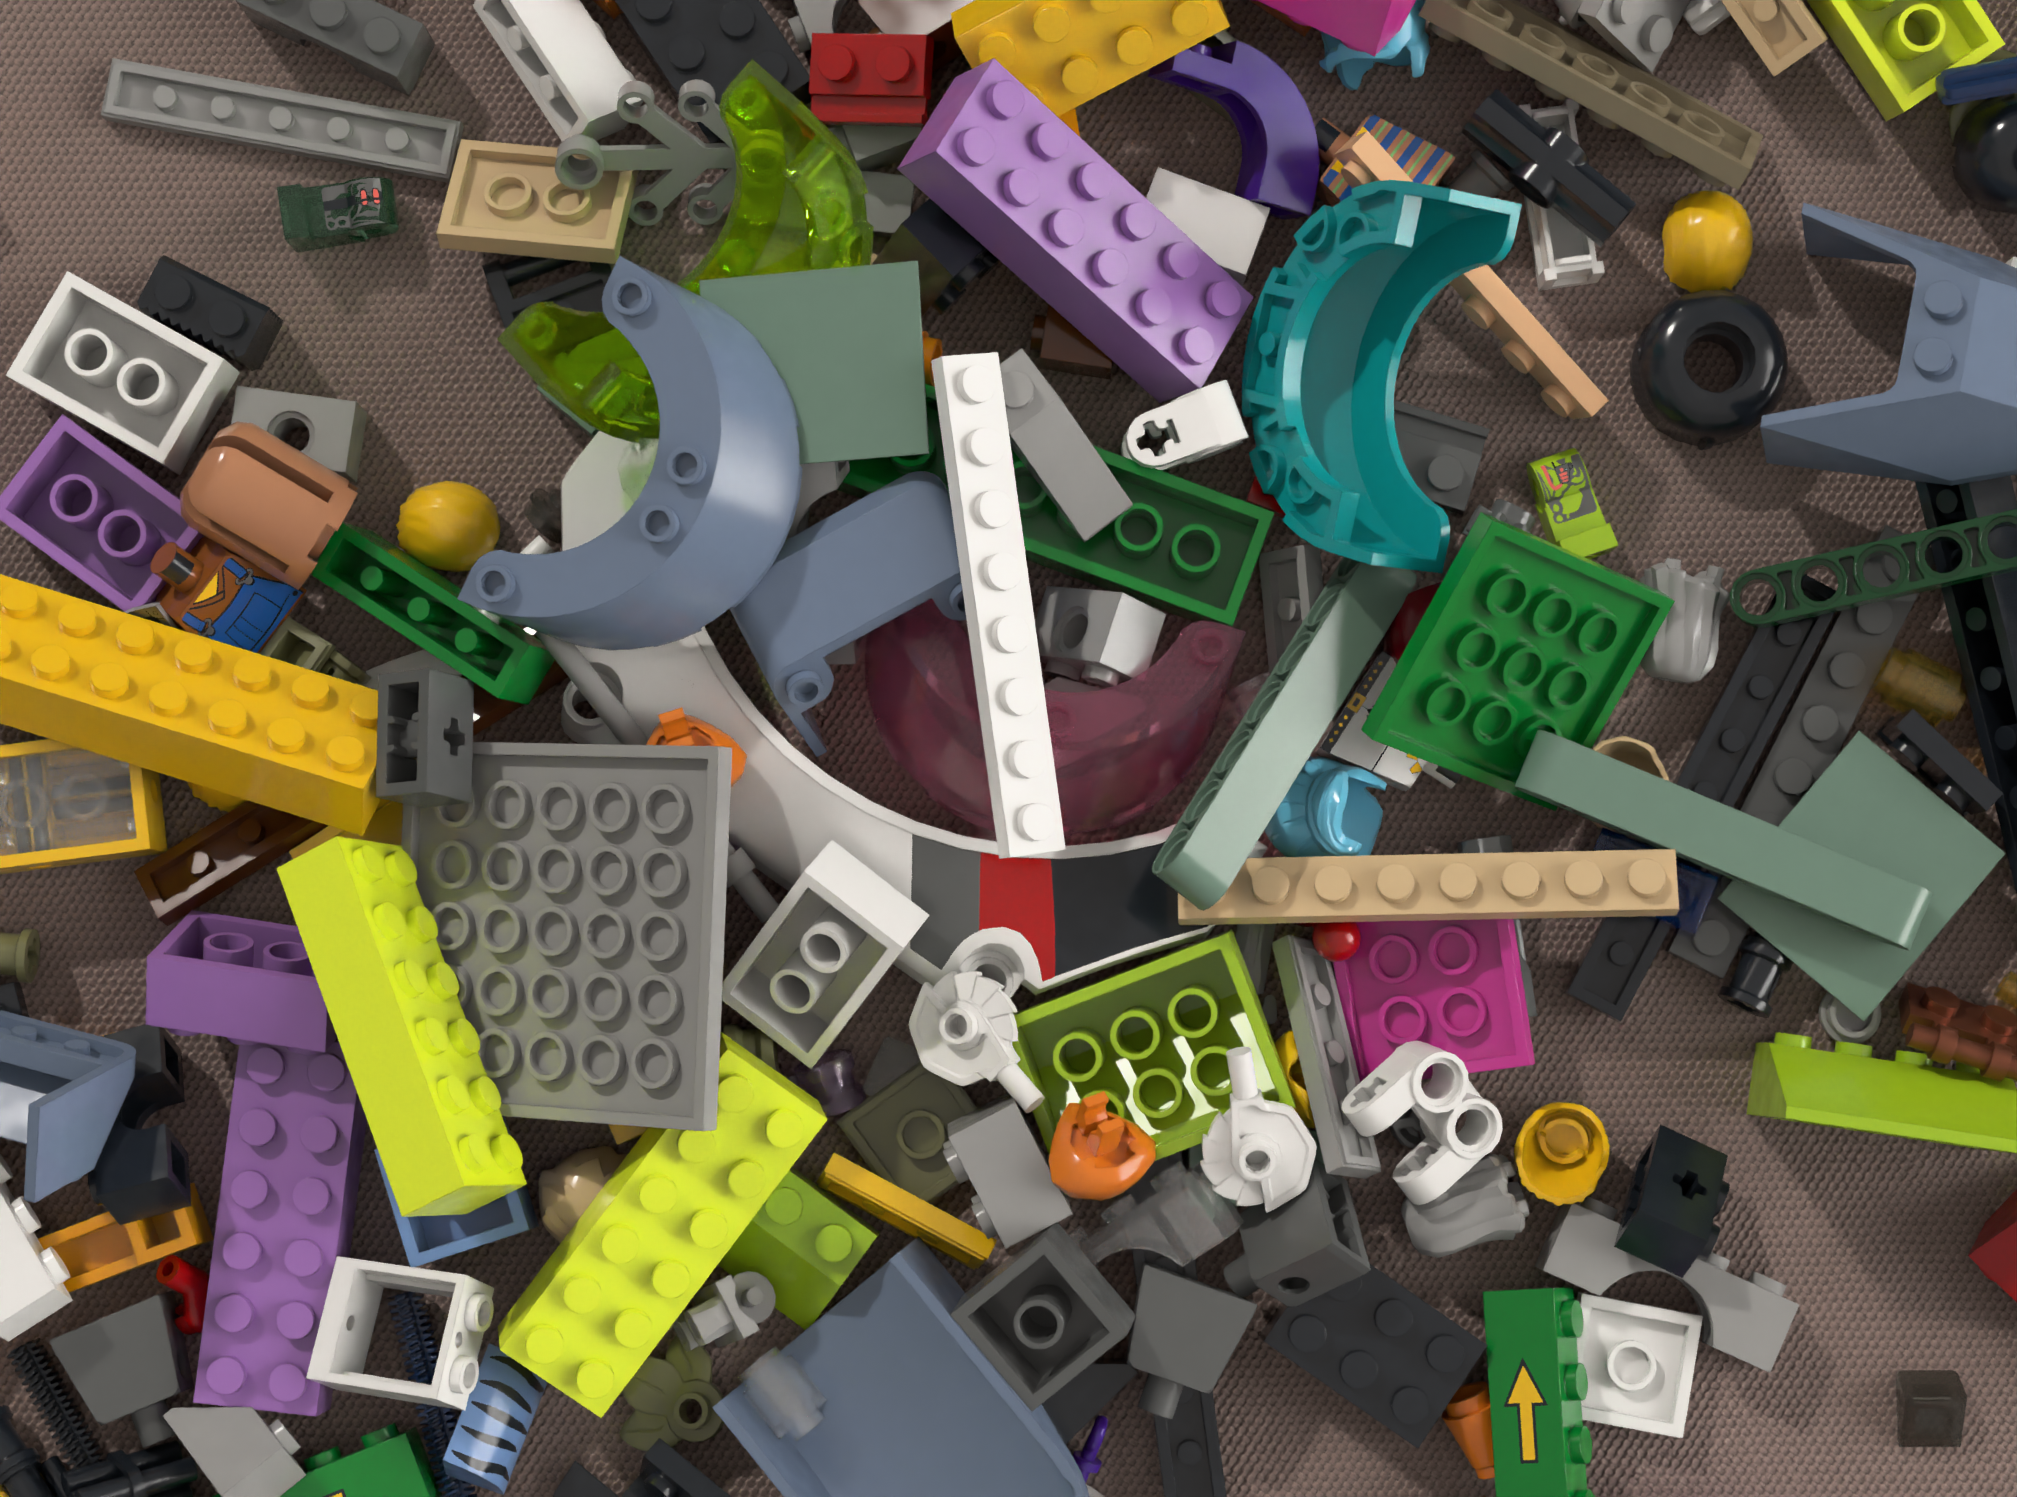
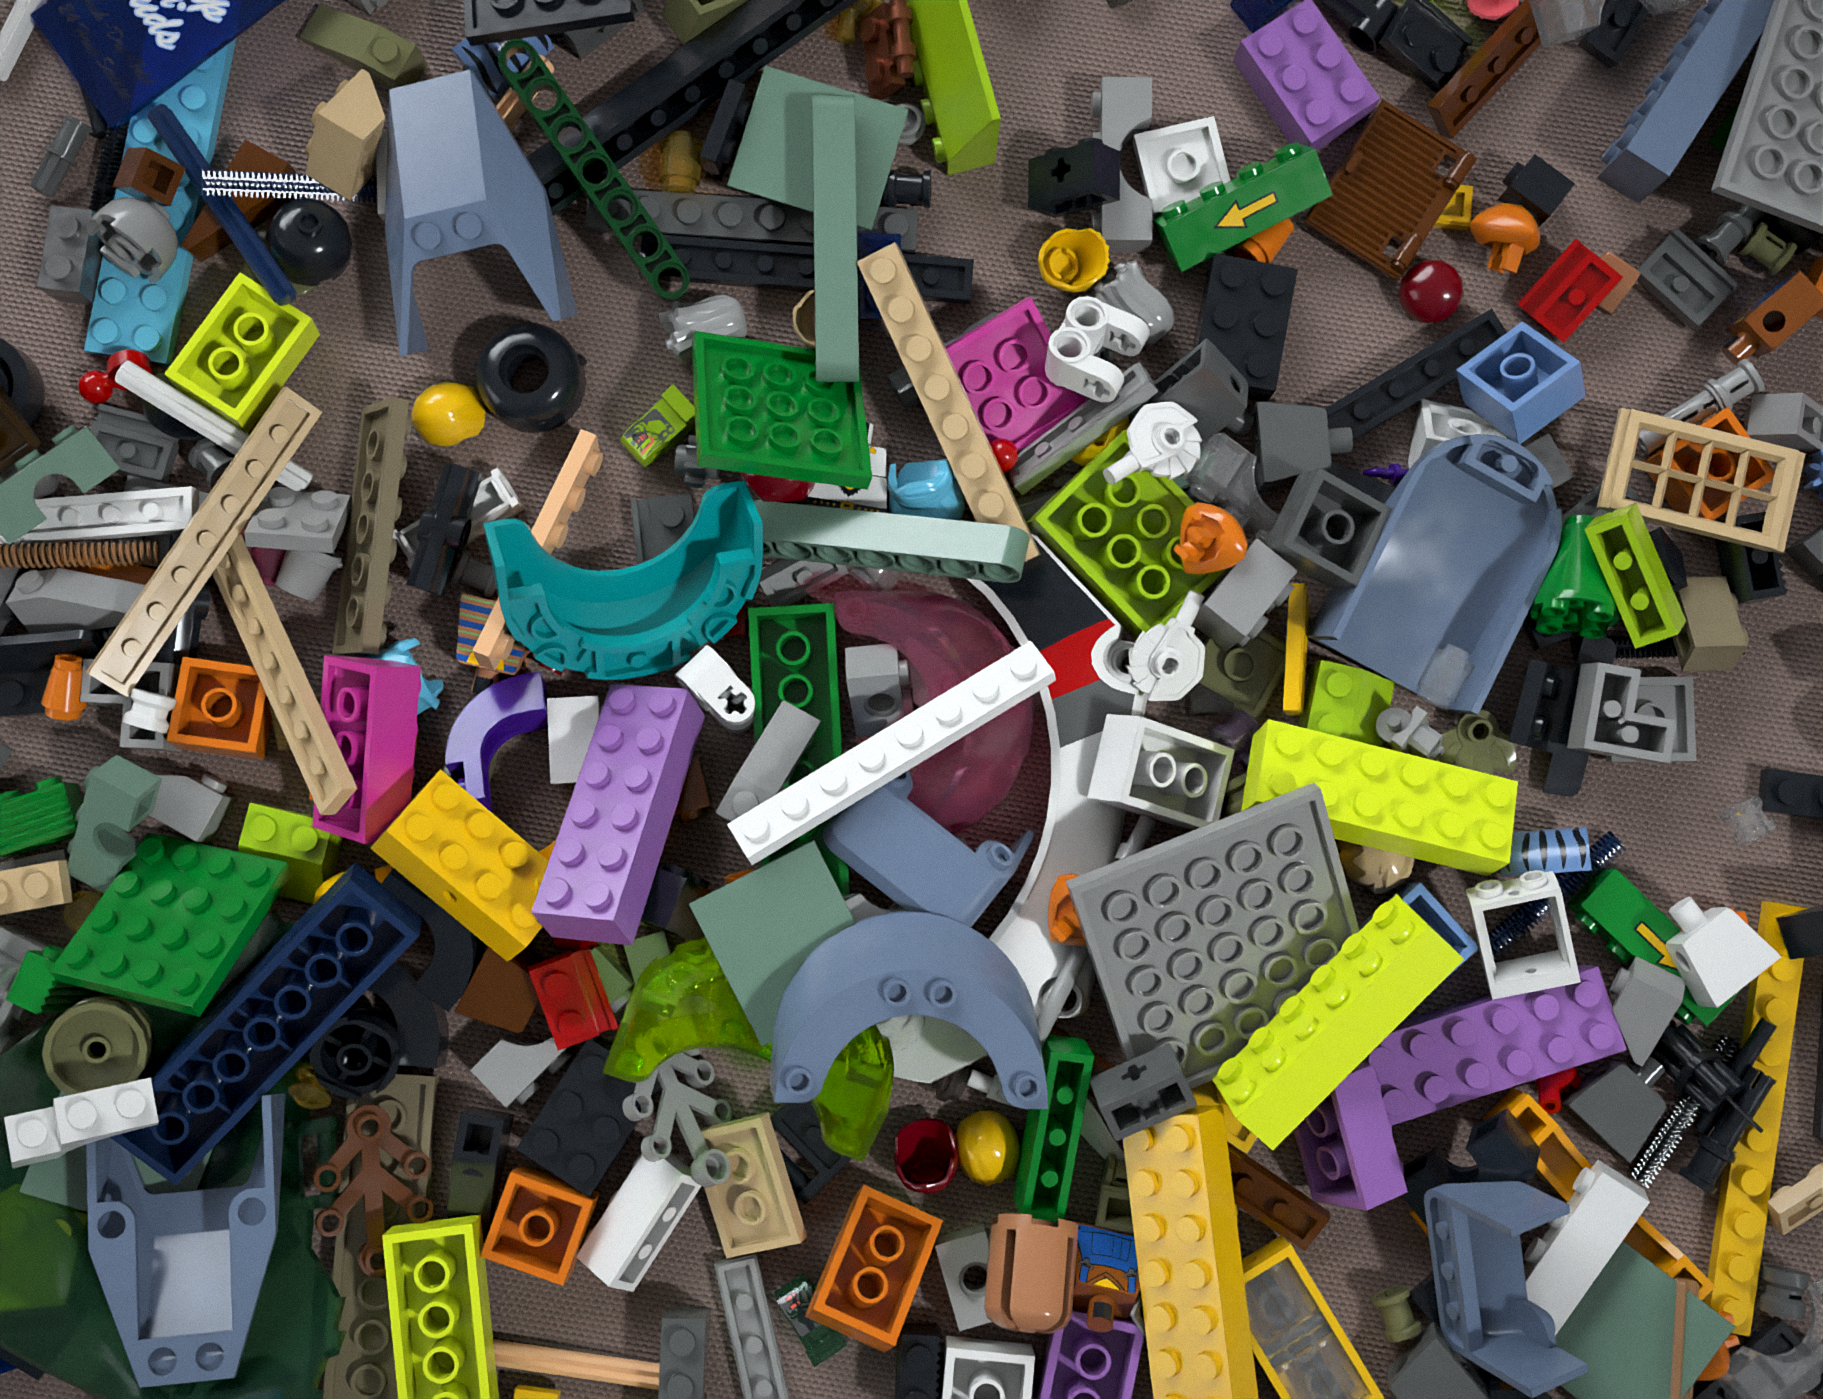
camera: 120 degrees left, 0 degrees up
(362, 312) = (874, 1269): none -> orange brick
(473, 441) = (925, 1155): none -> dark red hair

